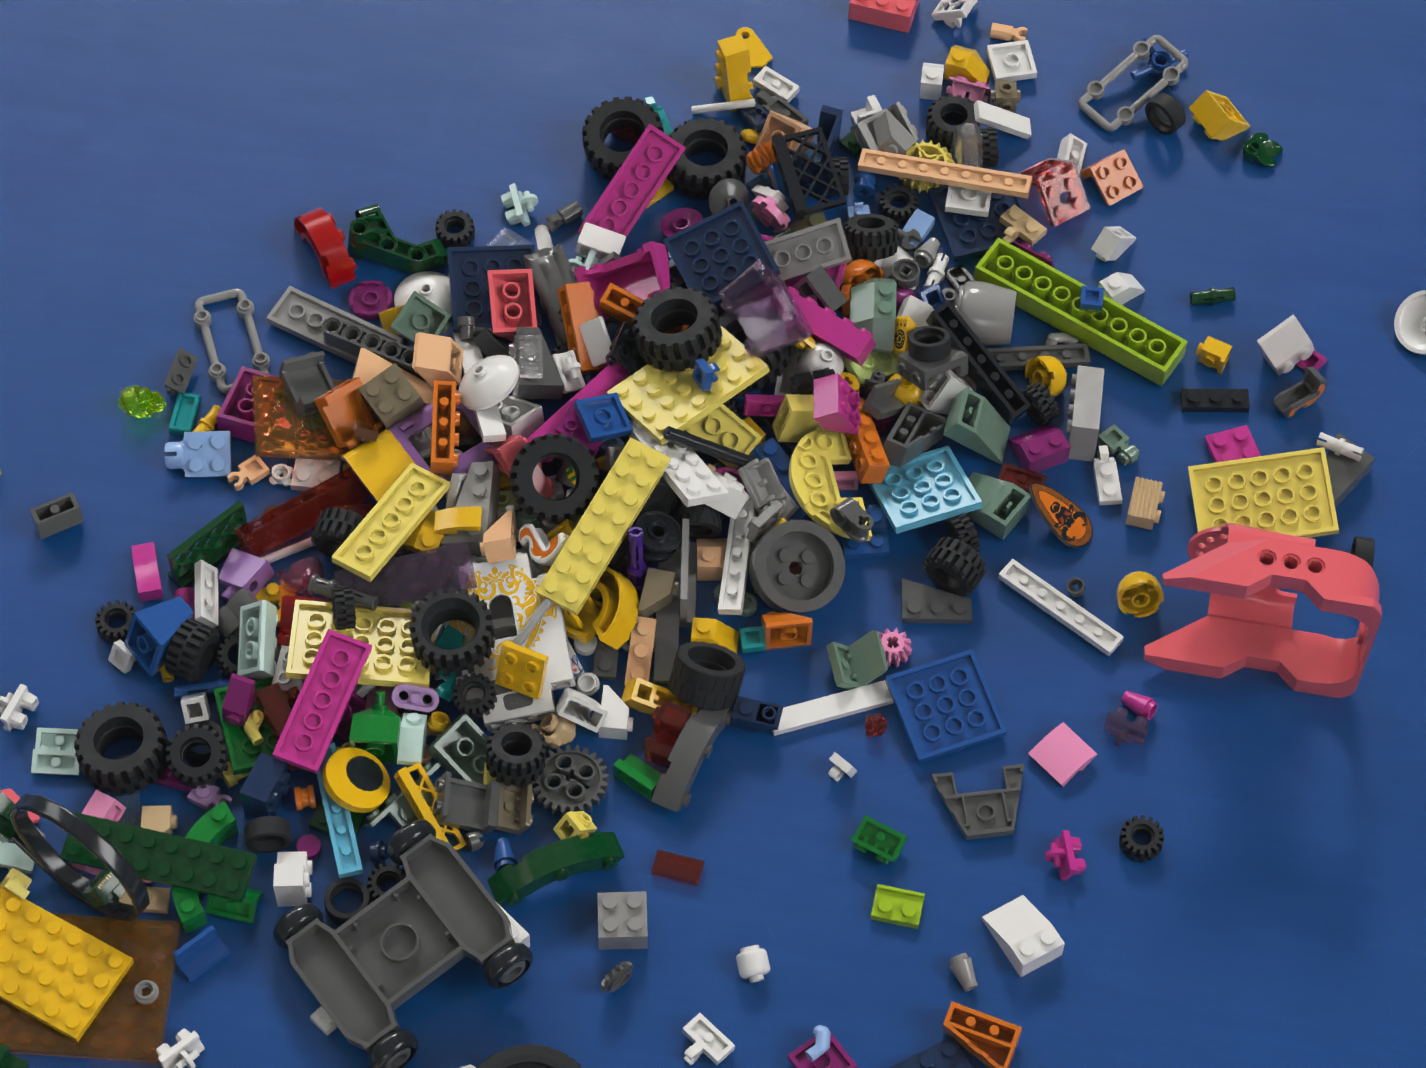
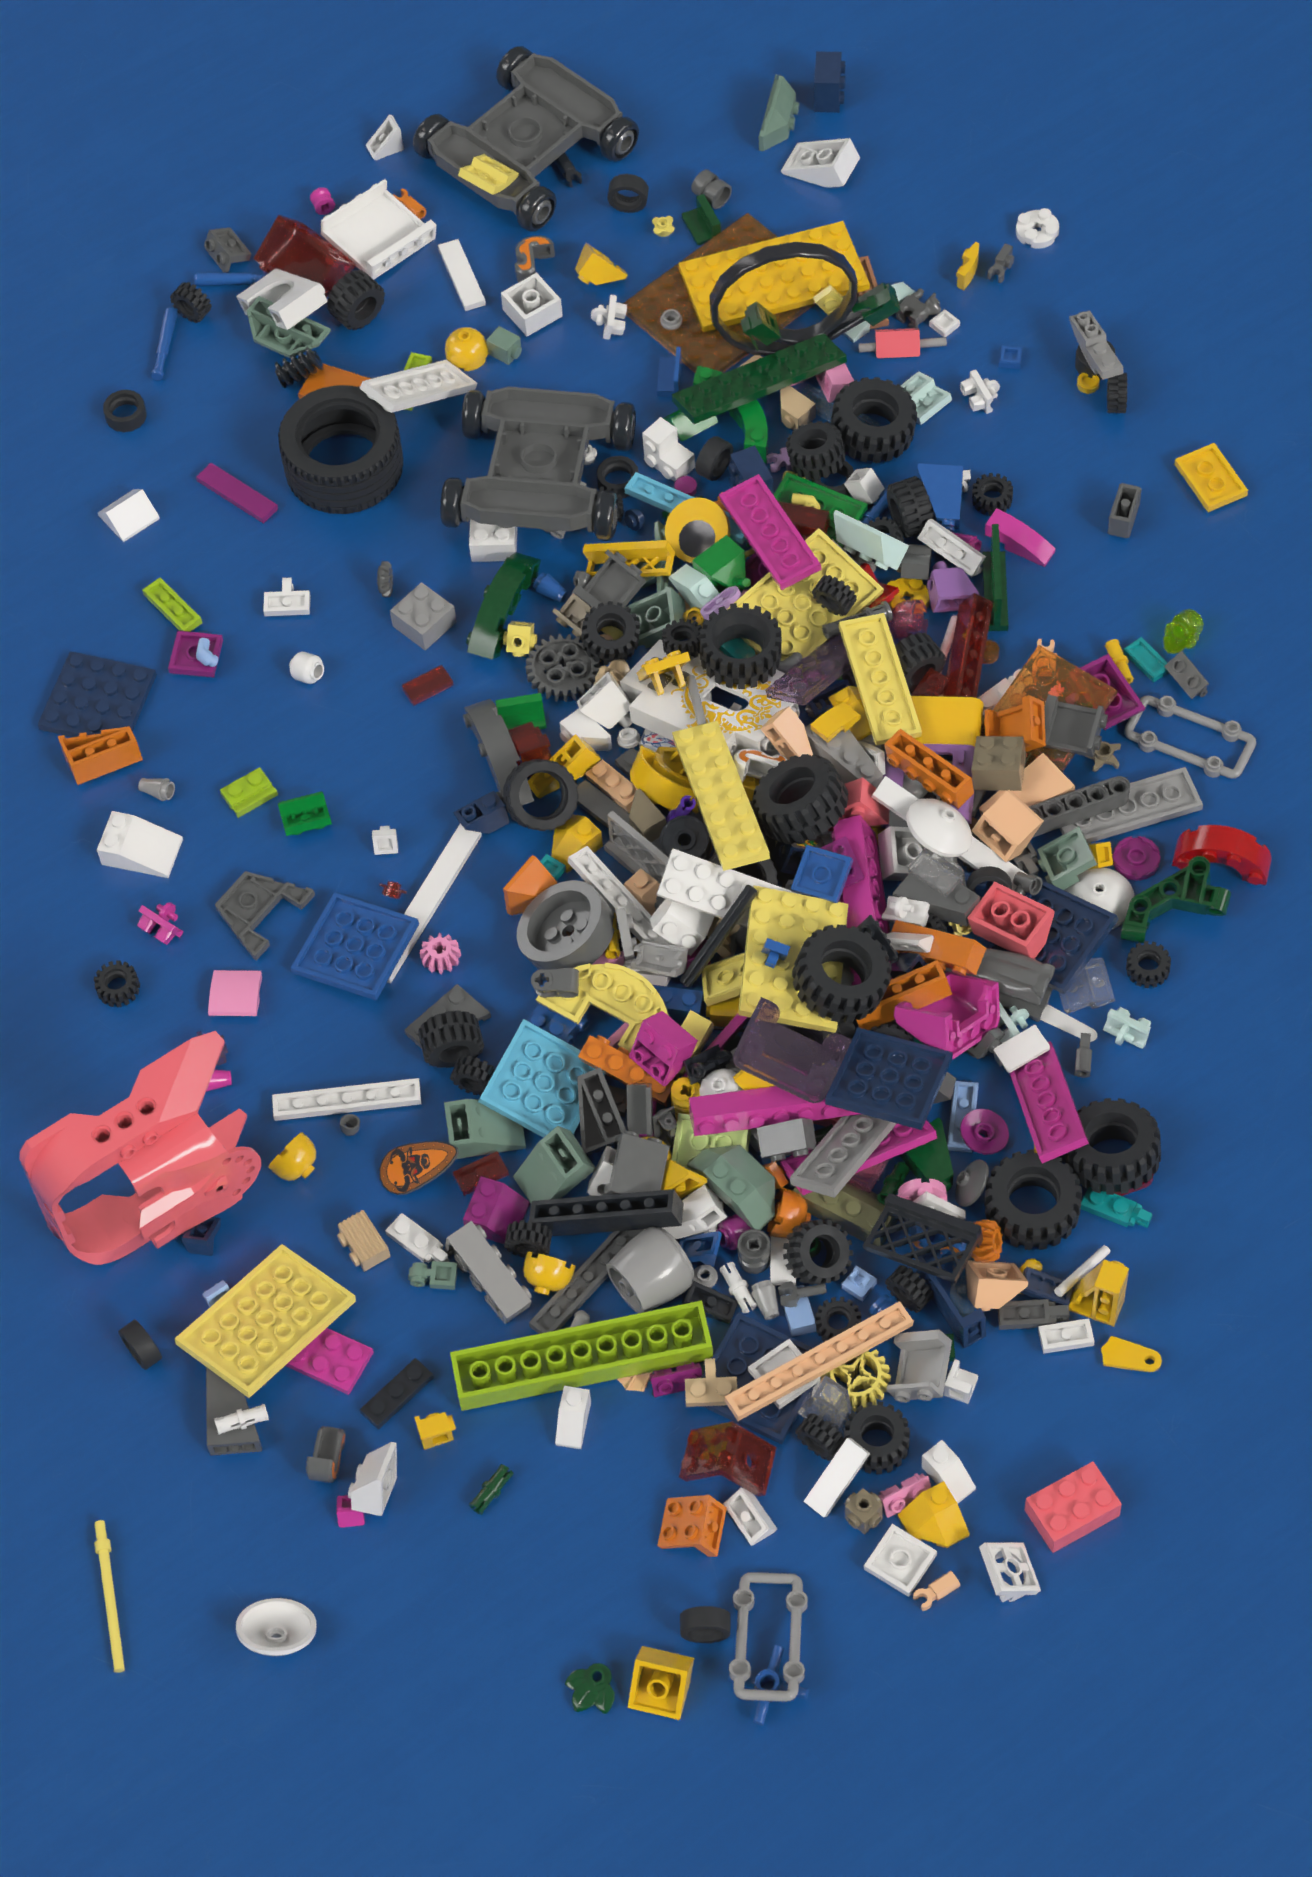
camera: 140 degrees right, 0 degrees up
(201, 454) = (1091, 635): light blue plate -> none
(238, 700) = (833, 497): magenta slope -> none
(365, 431) = (983, 721): reddish brown plate -> none
(858, 662) = (454, 913): sand green bracket -> none
(891, 134) = (901, 1358): light grey slope -> none
(929, 343) = (666, 1160): black tyre -> none
(1091, 298) = (572, 1353): blue plate -> none
(1112, 243) = (623, 1458): white slope -> none

